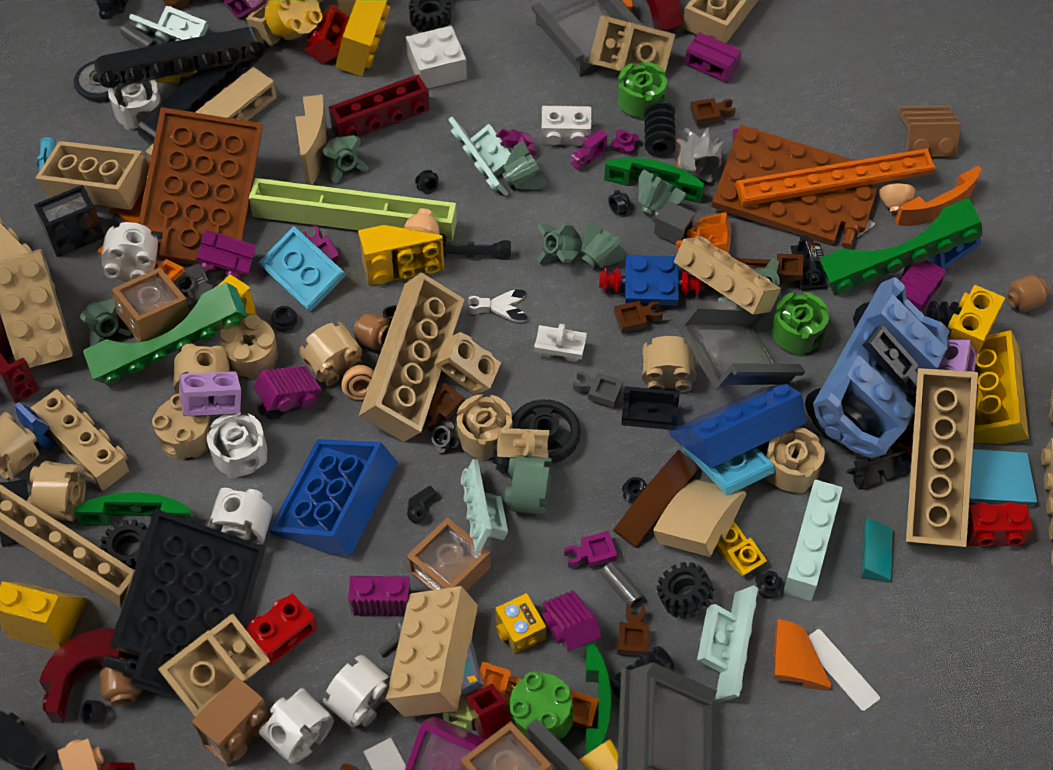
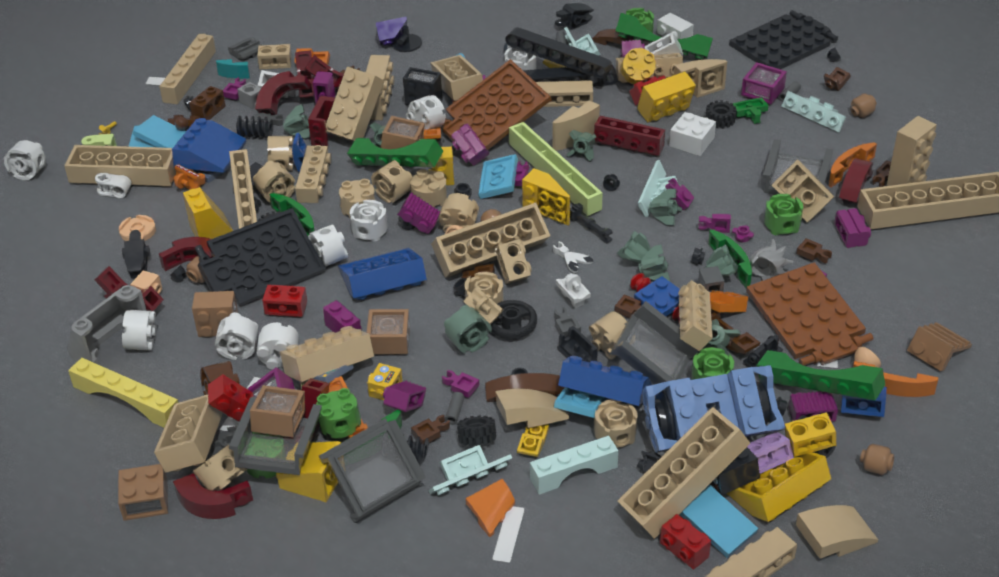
camera: 50 degrees right, 15 degrees down
(209, 393) = (376, 184): lavender brick -> none
(212, 663) = (247, 285): tan slope -> none
(417, 504) = (413, 304): black arm -> none
(423, 222) = (572, 188): light nougat brick -> none
(484, 509) = (429, 323): light aqua bracket -> none
(562, 127) = (718, 202): white brick -> none
(660, 129) = (763, 237): black piece -> none
(769, 591) = (523, 467): black plate -> none
(815, 250) = (767, 343): black sticker -> none
(834, 177) = (837, 323): orange tile -> none
(876, 551) = (601, 499): teal slope -> none
(893, 359) = (717, 395): black hinge -> none

